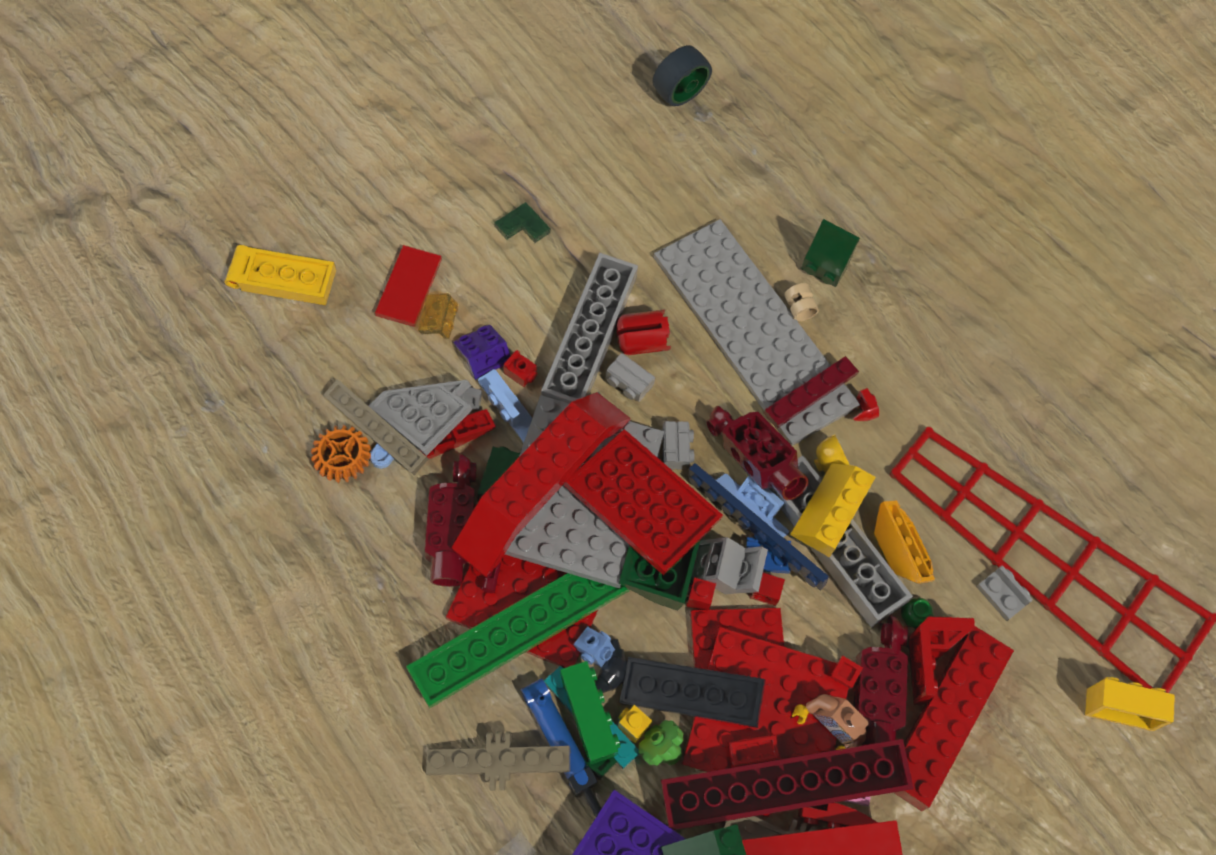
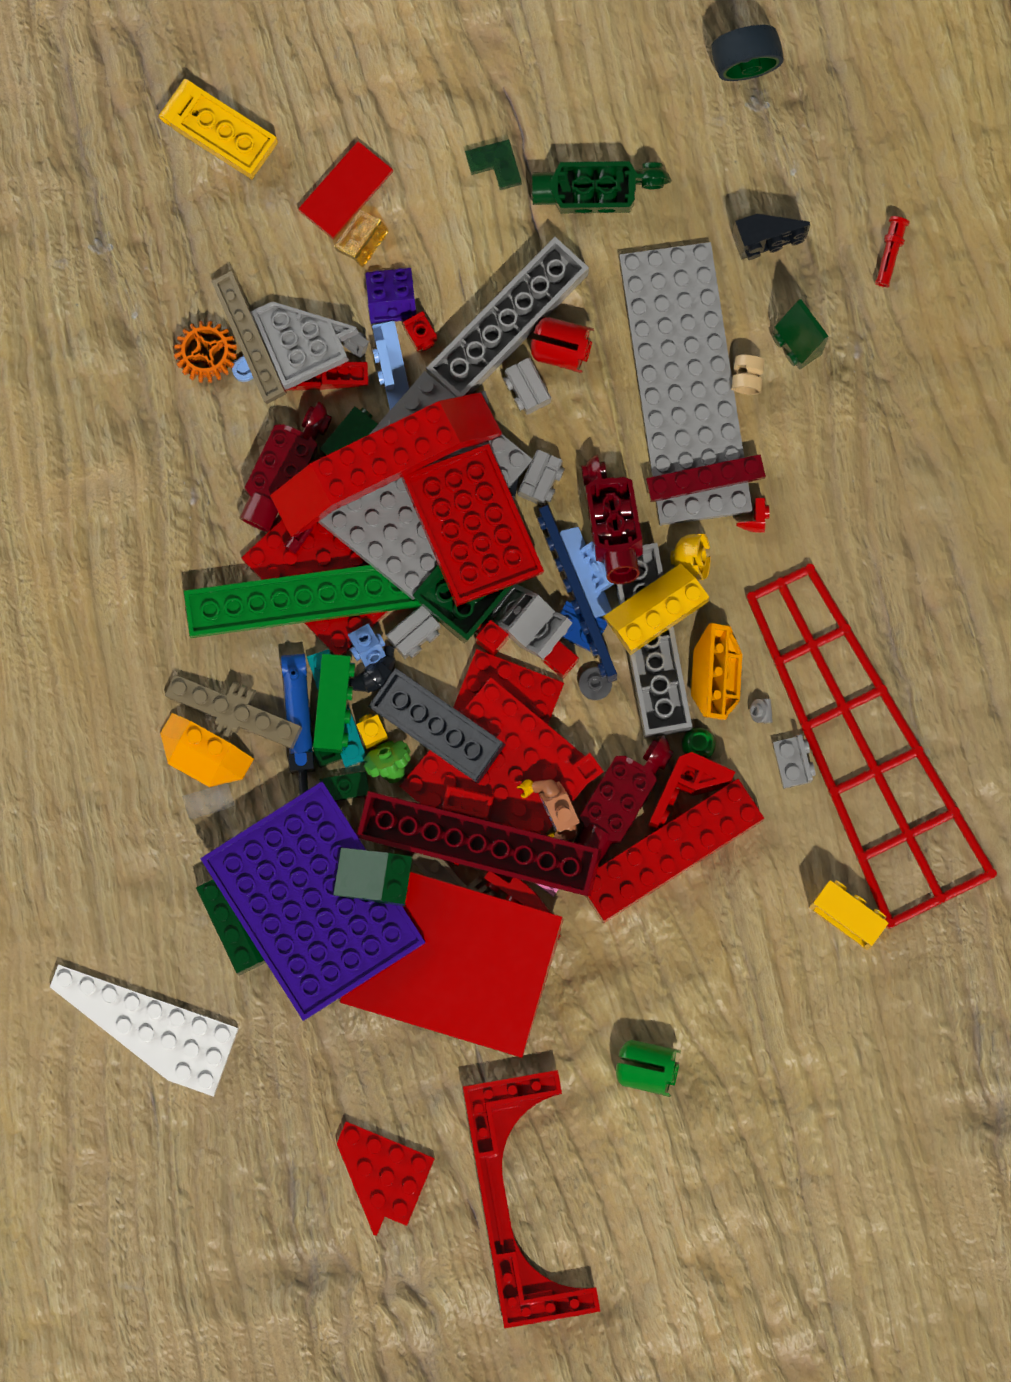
camera: 30 degrees right, 15 degrees up
(484, 813) = (202, 753): none -> light orange wedge
(611, 208) = (595, 185): none -> dark green brick
(629, 618) = (413, 632): none -> light grey brick
(634, 784) = (347, 786): none -> dark green plate
(762, 194) = (767, 233): none -> black slope
(806, 598) = (593, 685): none -> flat silver piece
(856, 170) = (895, 239): none -> red pin
(954, 562) = (761, 711): none -> light grey plate

